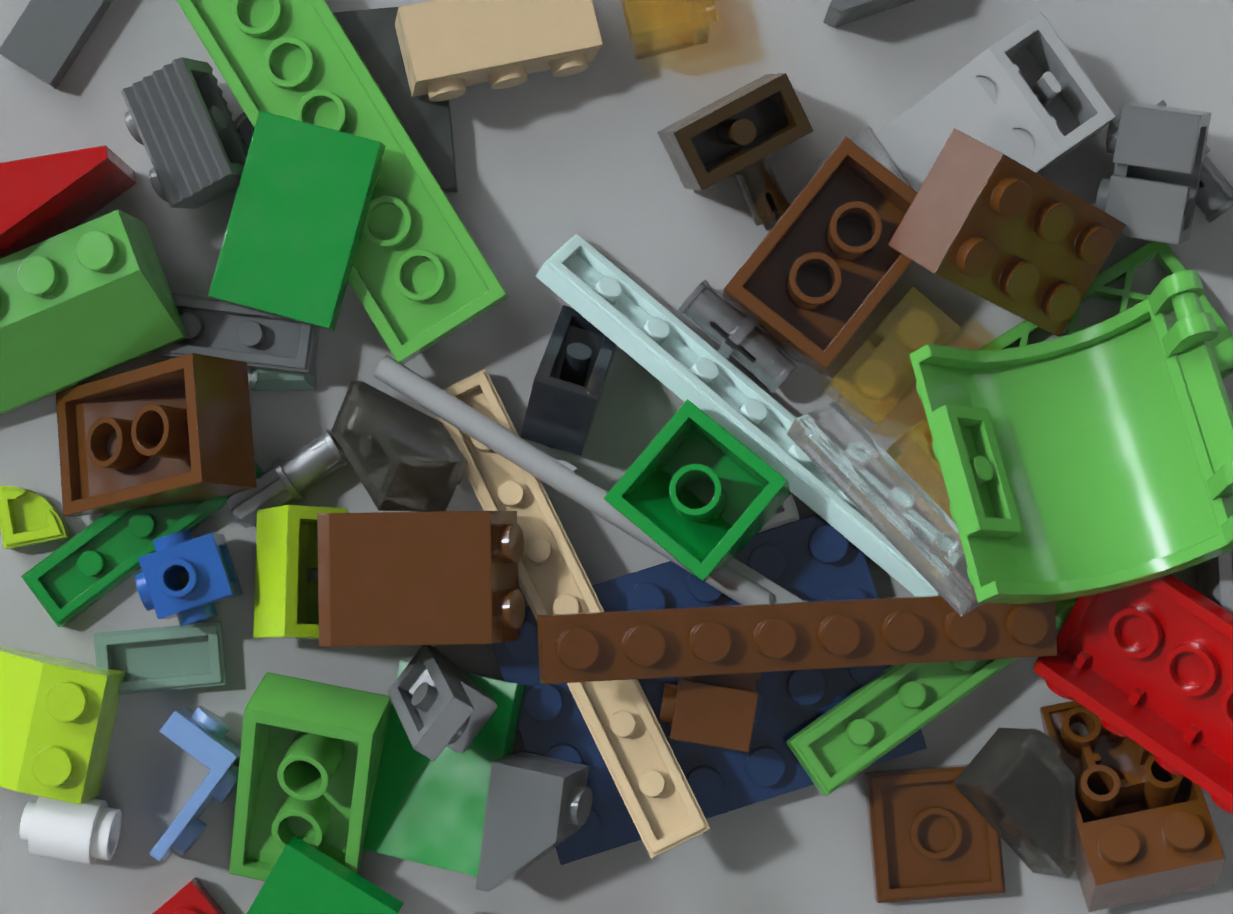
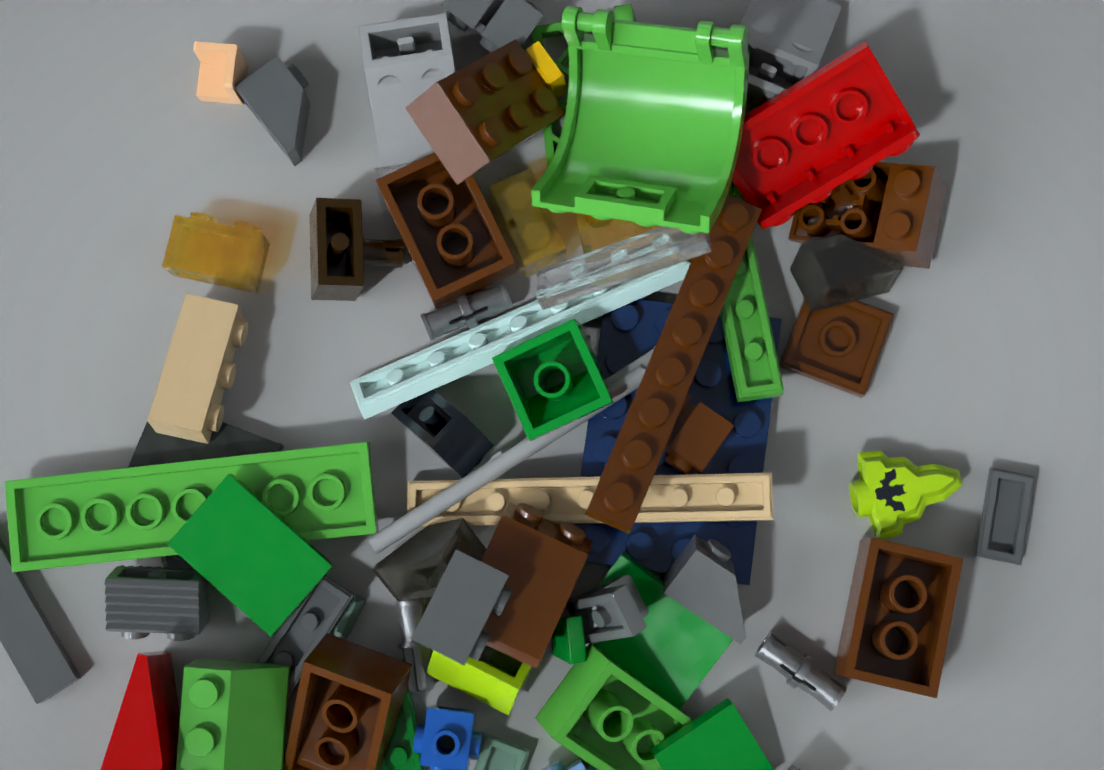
camera: 65 degrees left, 5 degrees down
(343, 517) = (461, 608): none -> dark grey piece
(380, 670) = (569, 640): none -> green tile
(1107, 284) = (547, 69): none -> yellow tile

